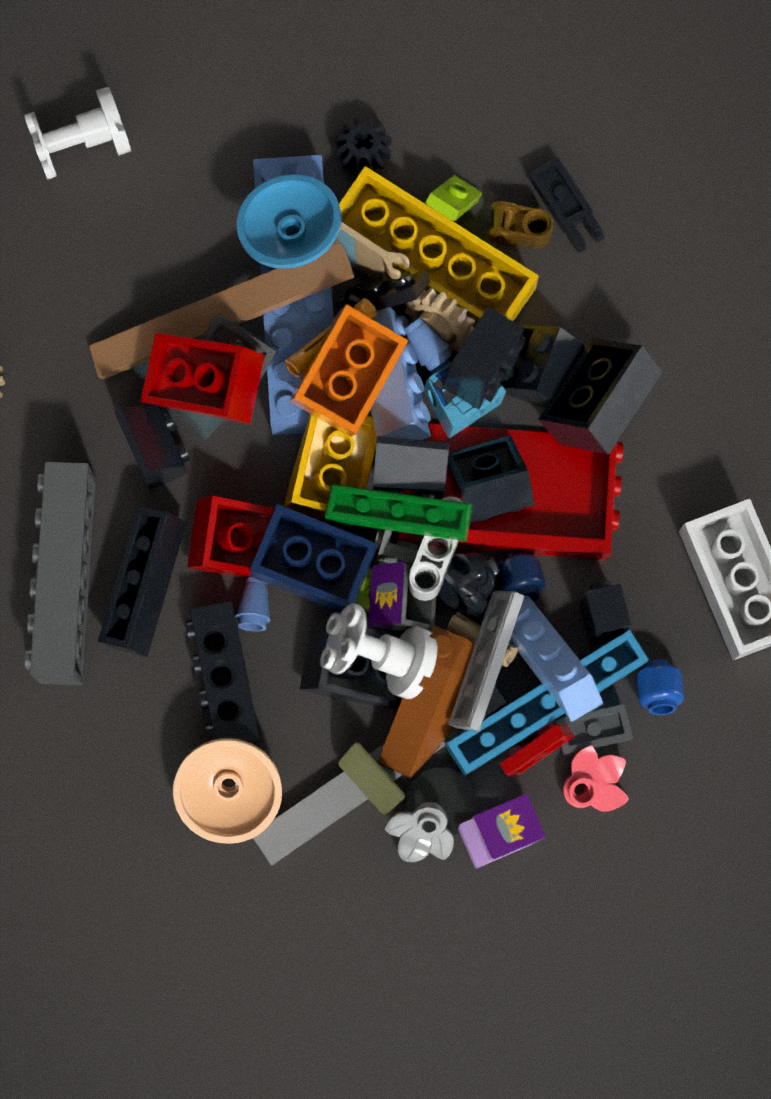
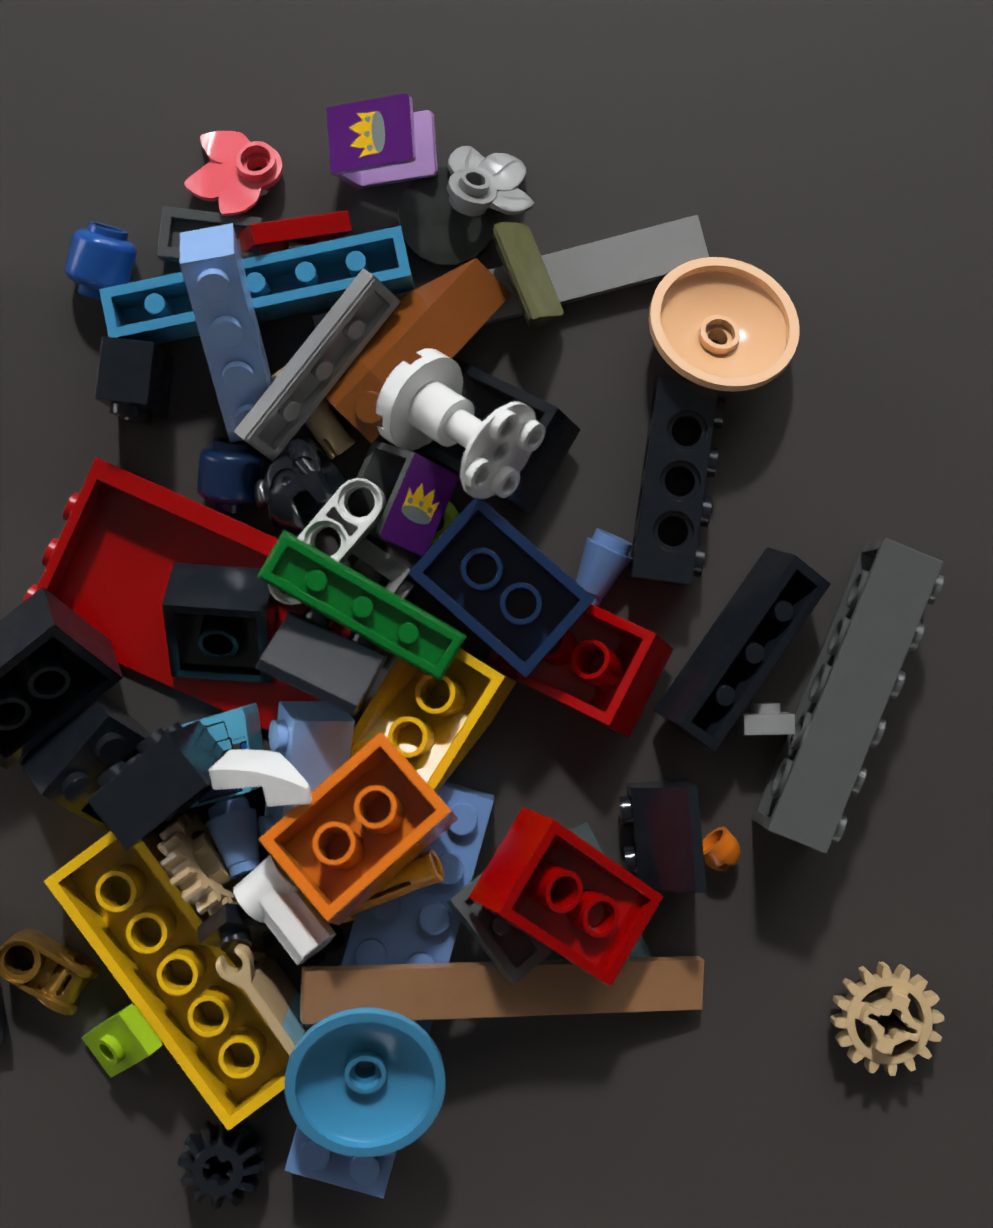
camera: 165 degrees left, 10 degrees up
(109, 542) = (766, 720): none -> light grey plate
(112, 450) = (721, 849): none -> orange hinge
(387, 310) = (275, 899): none -> white piece
(423, 384) = (260, 768): none -> white slope

